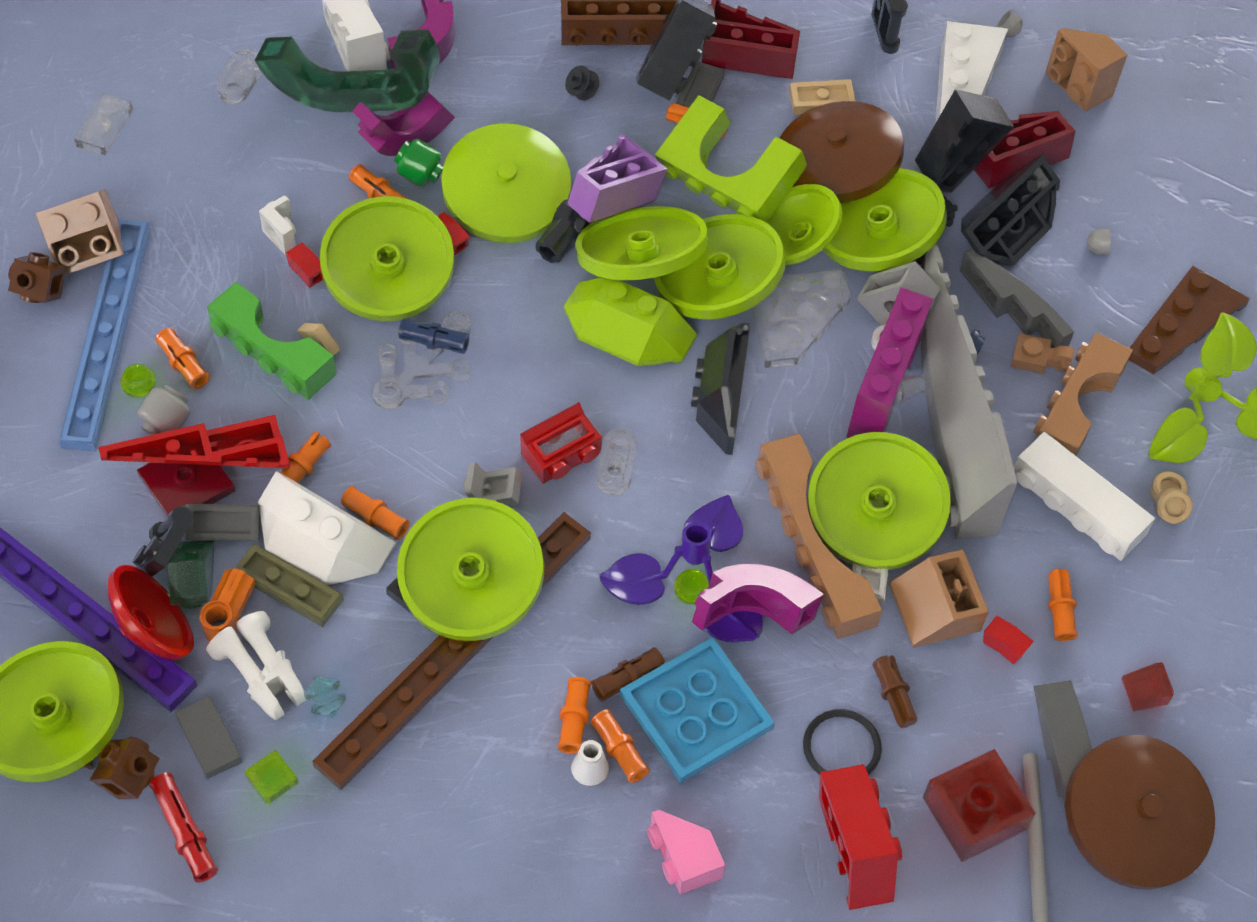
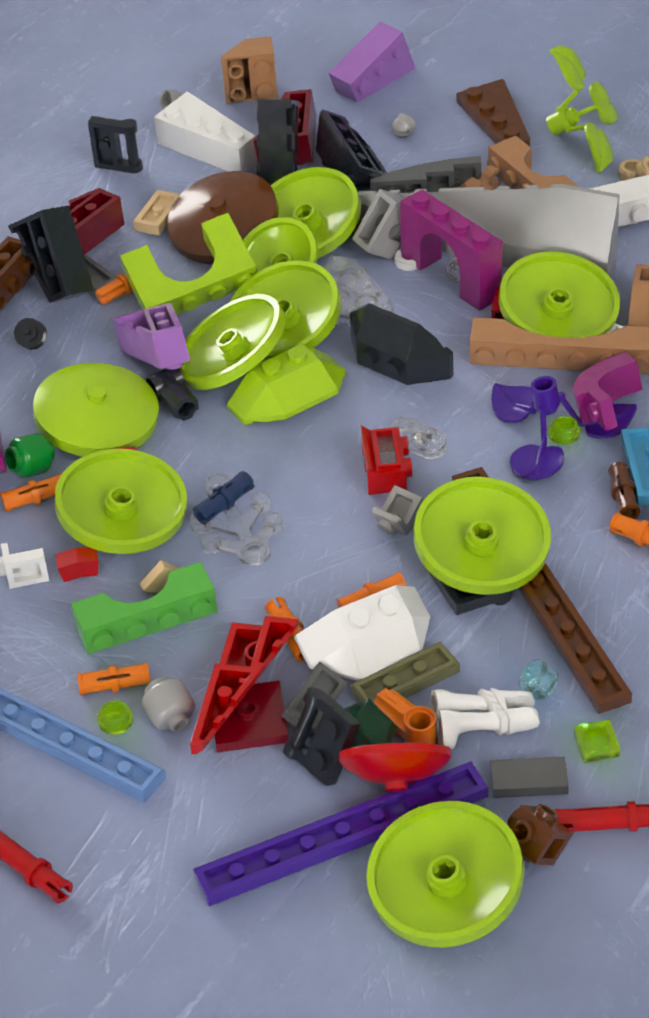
camera: 55 degrees left, 15 degrees down
(1180, 167) = (372, 63): none -> medium lavender wedge

